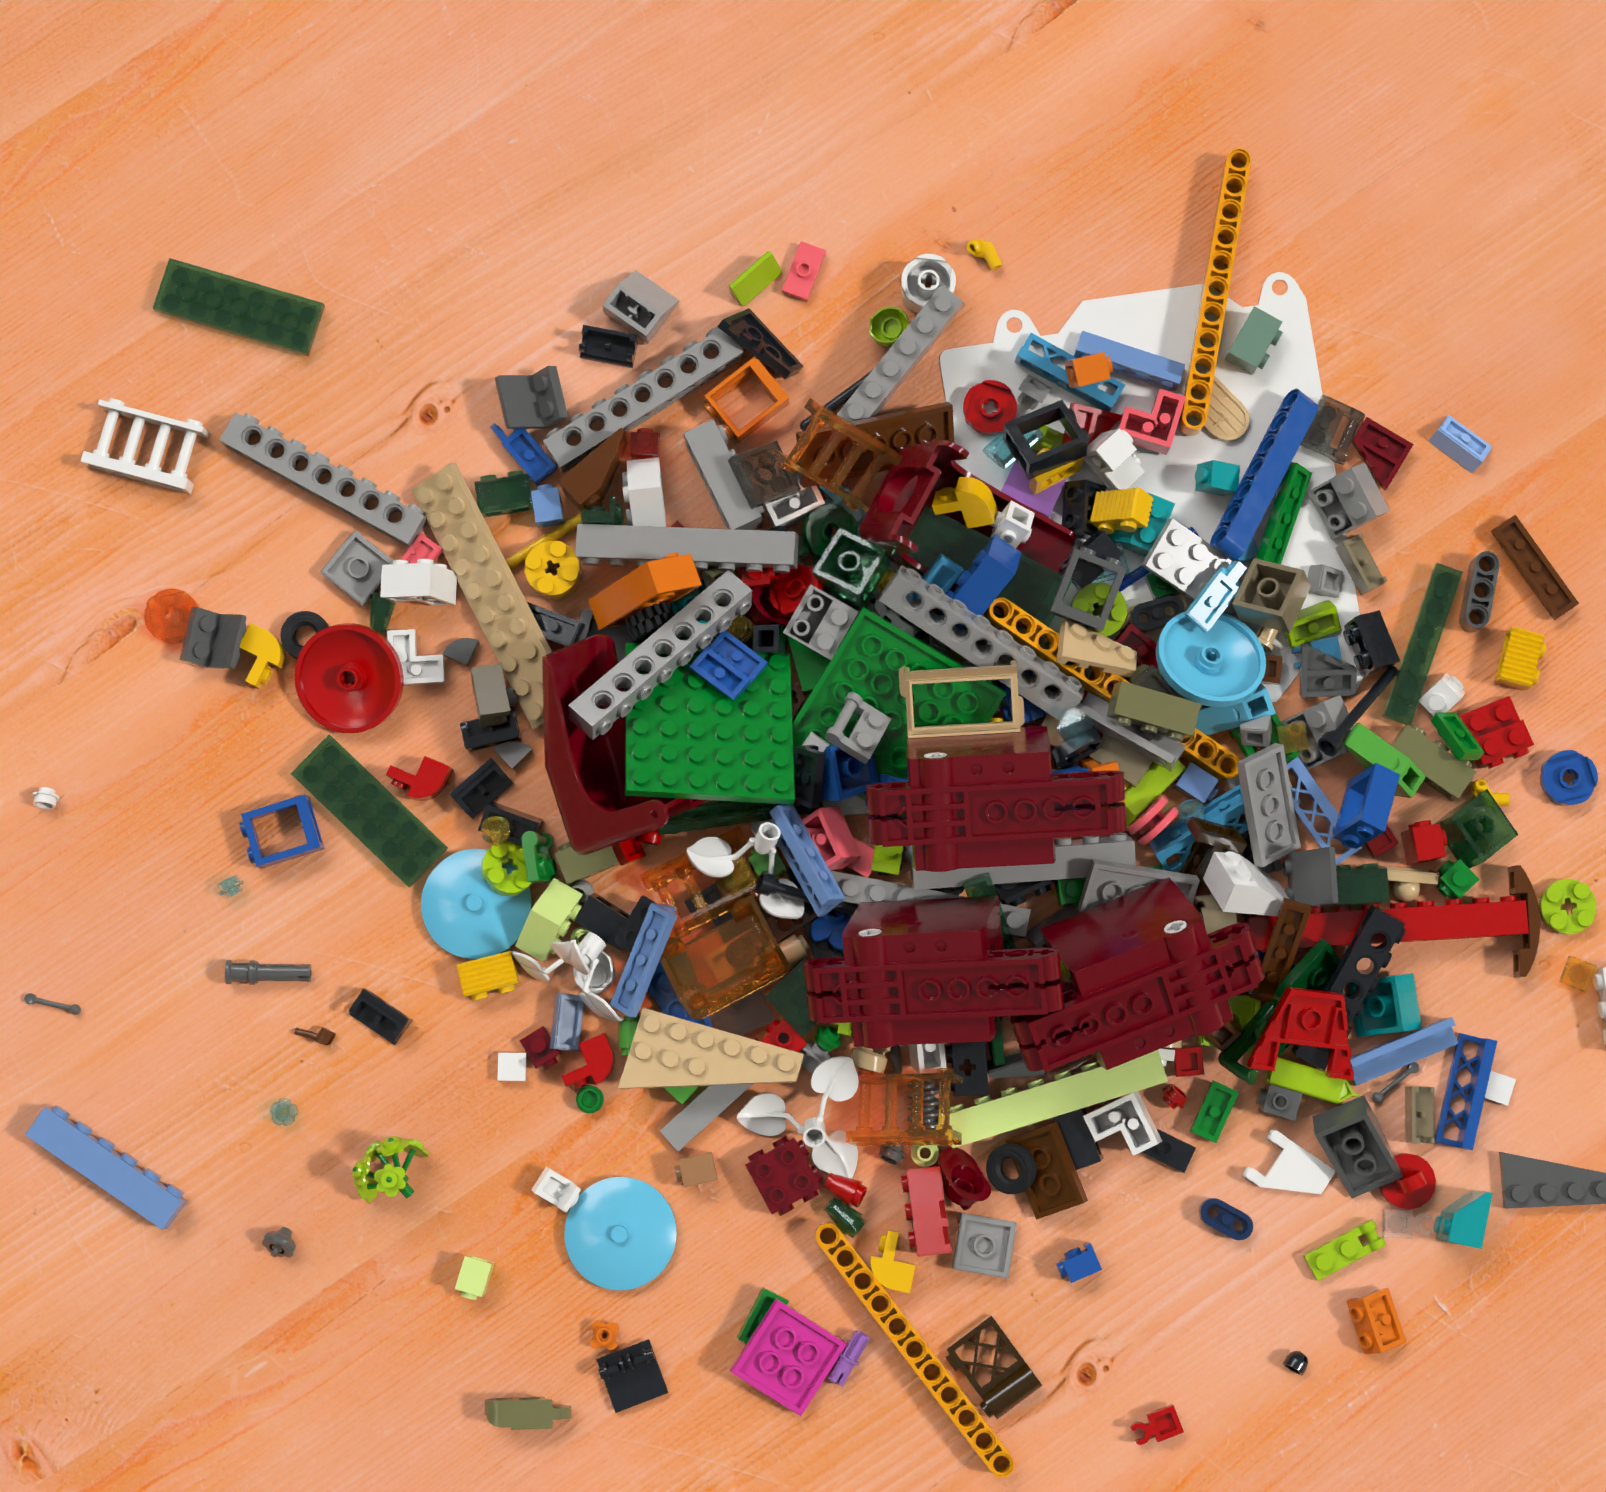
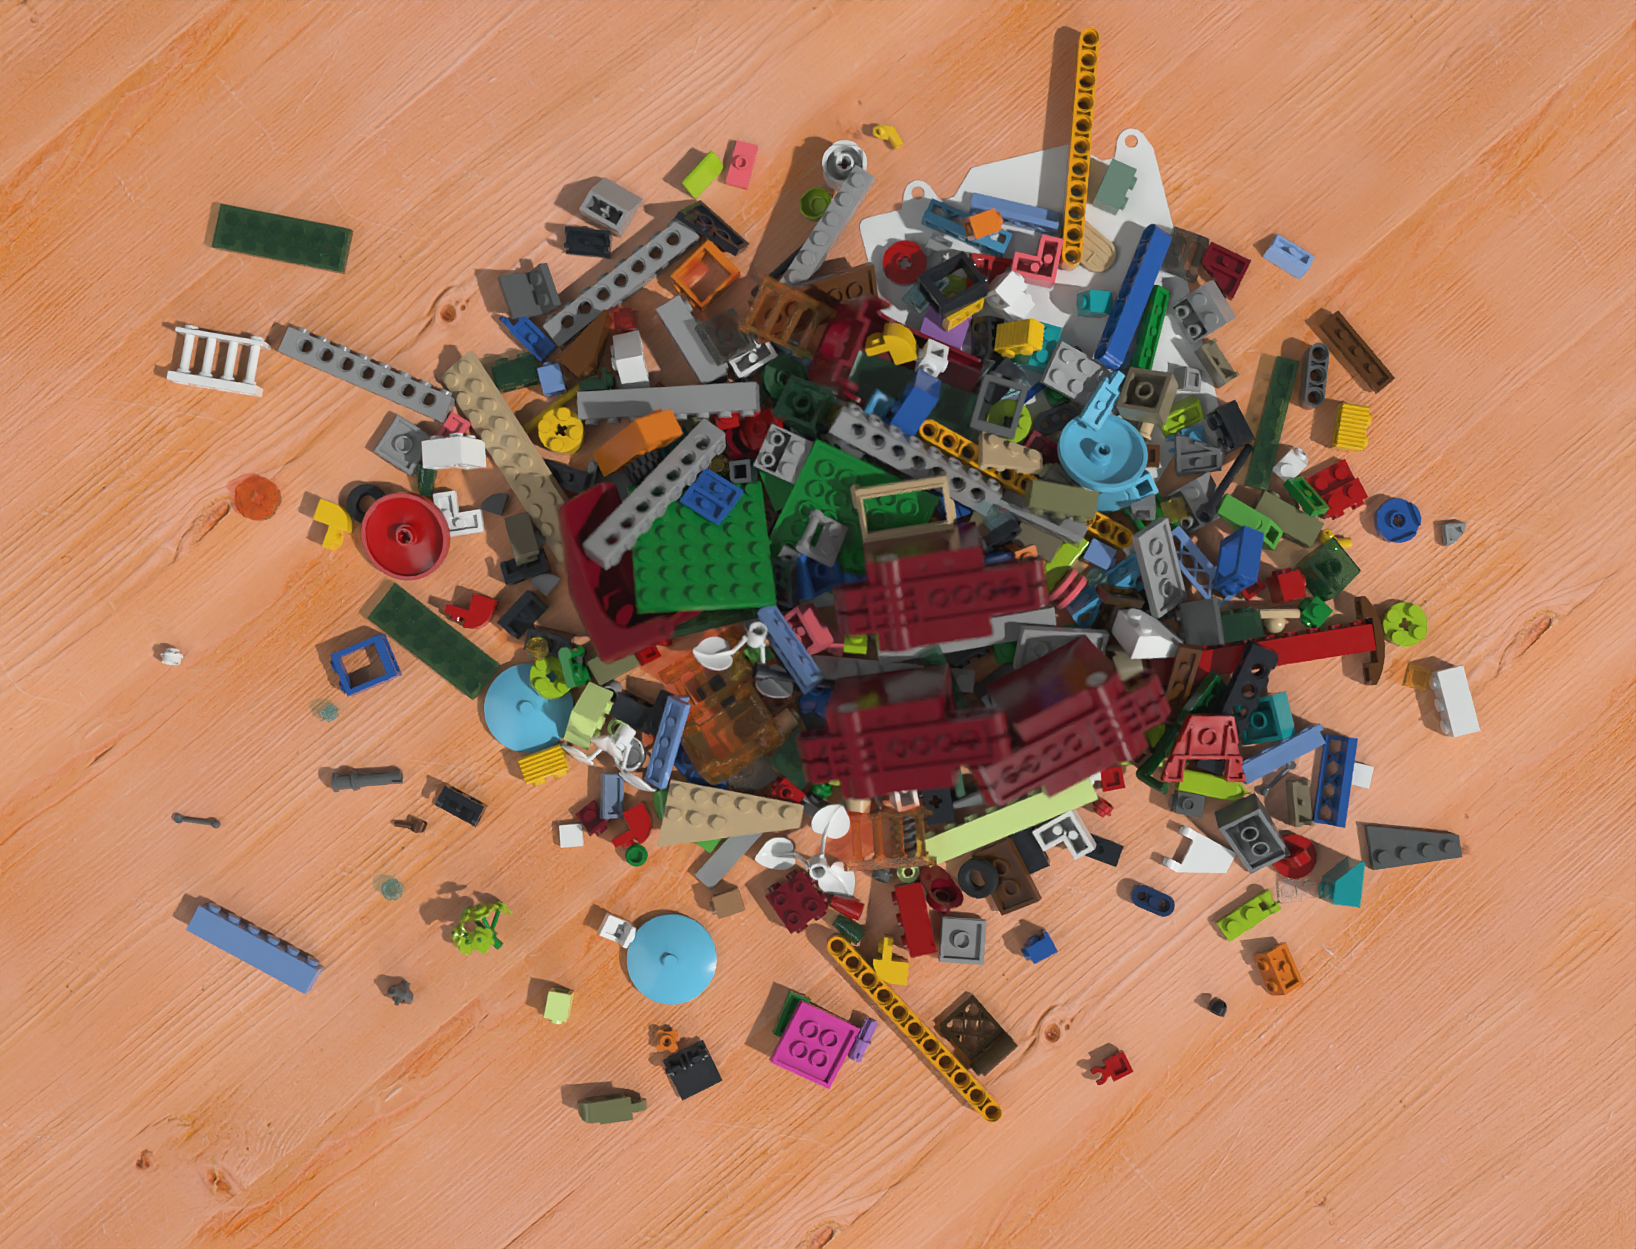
camera: 10 degrees left, 5 degrees up
(213, 639) = (291, 514): dark grey bracket -> none
(1214, 1111) = (1135, 816): green plate -> none

